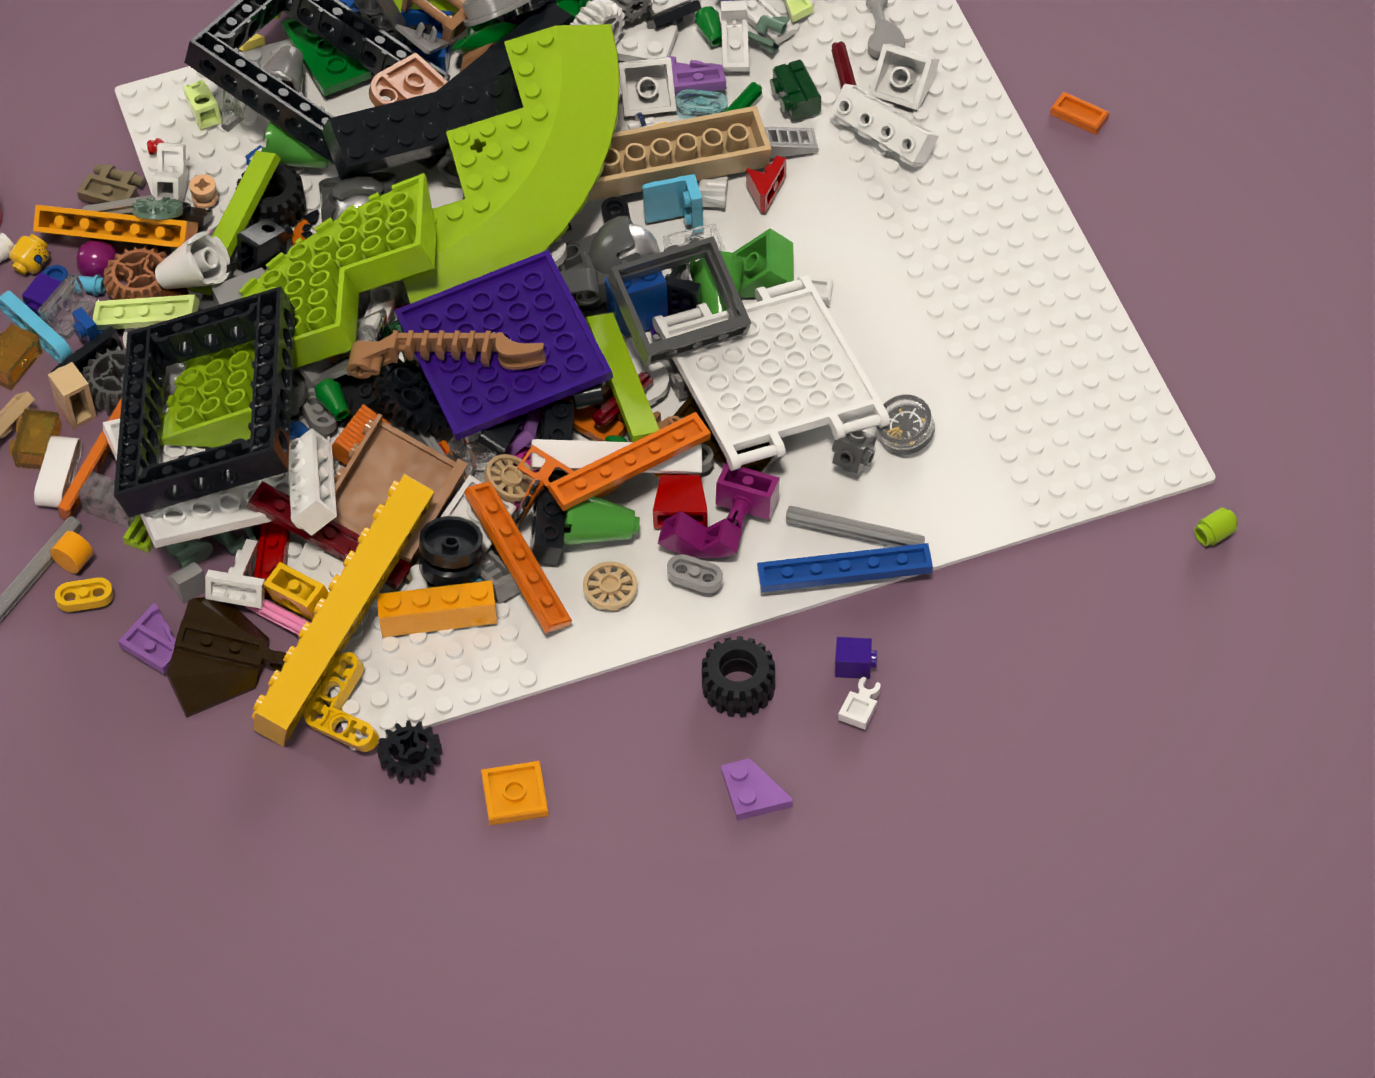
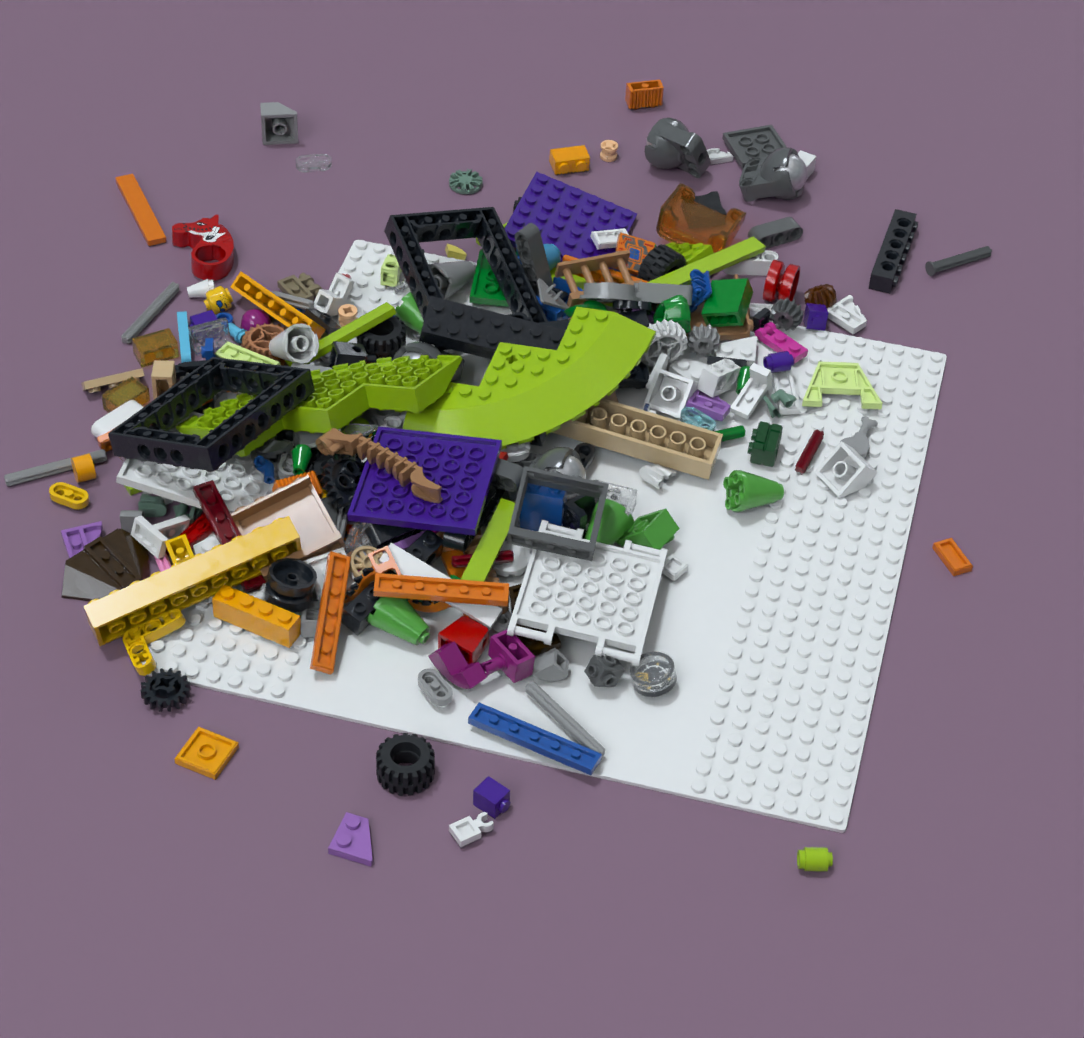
camera: 30 degrees right, 10 degrees down
(157, 208) = (305, 307): sand green wheel -> none
(311, 482) = (237, 494): white brick -> none
(405, 80) = (513, 306): nougat tile -> none
(610, 586) = (377, 665): tan wheel -> none
(673, 199) = (622, 462): medium azure bracket -> none
(686, 38) = (718, 377): none -> white brick
(765, 185) = (698, 488): red slope -> none
(777, 135) = (725, 465): light grey slope -> none
(794, 476) = (551, 666): none -> light grey brick
(828, 157) = (750, 491): none -> bright green cone
(884, 124) = (804, 491): white brick -> none

